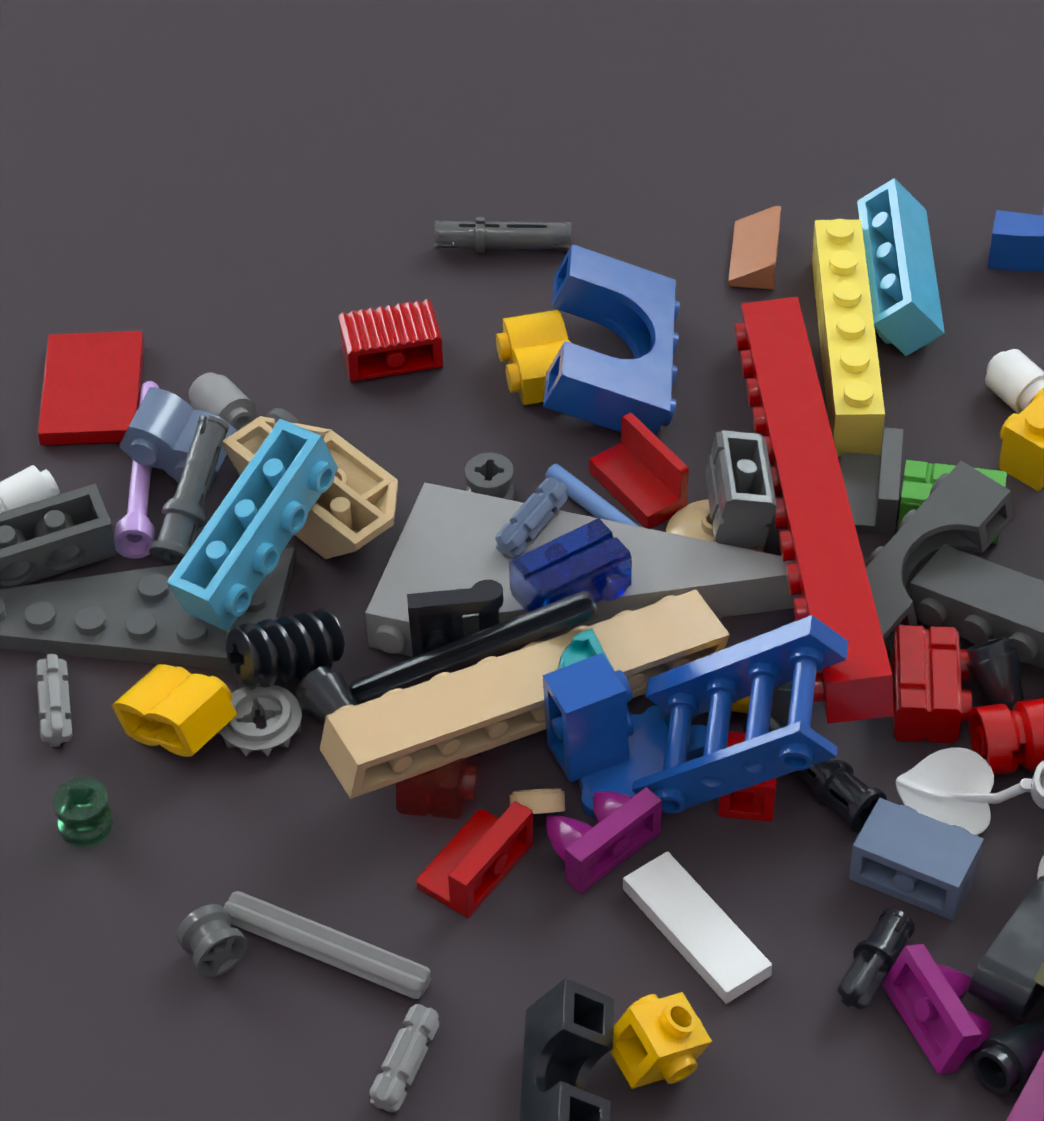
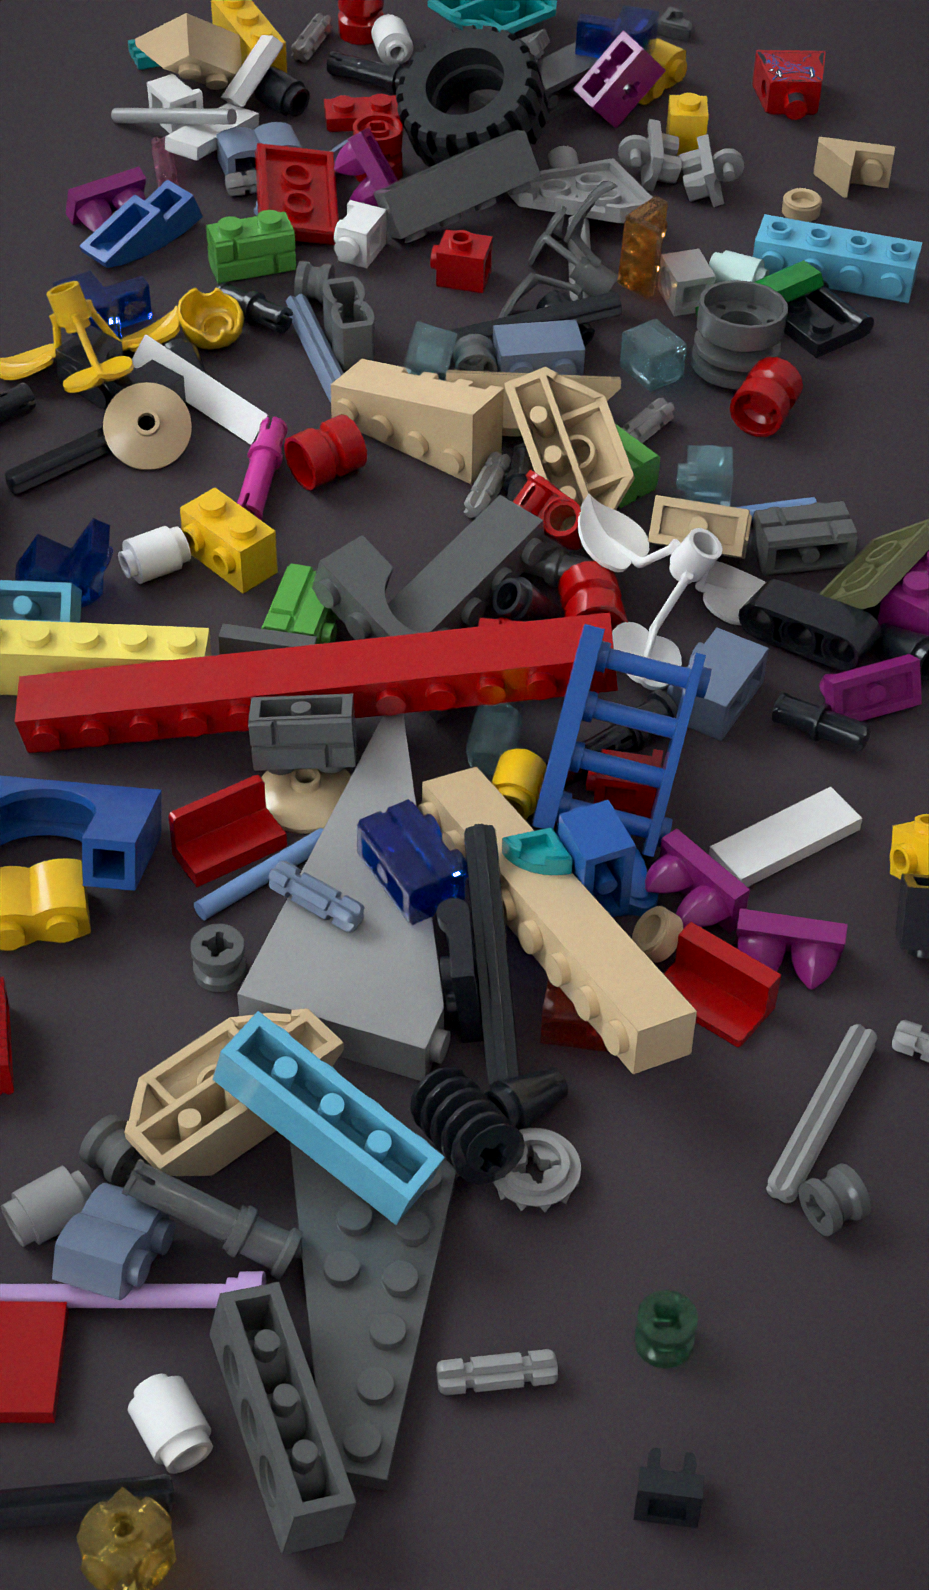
camera: 90 degrees left, 0 degrees up
(175, 709) = (538, 1231): yellow brick -> none
(542, 905) = (812, 943): none -> magenta tile
(973, 317) = (80, 565): none -> clear blue brick

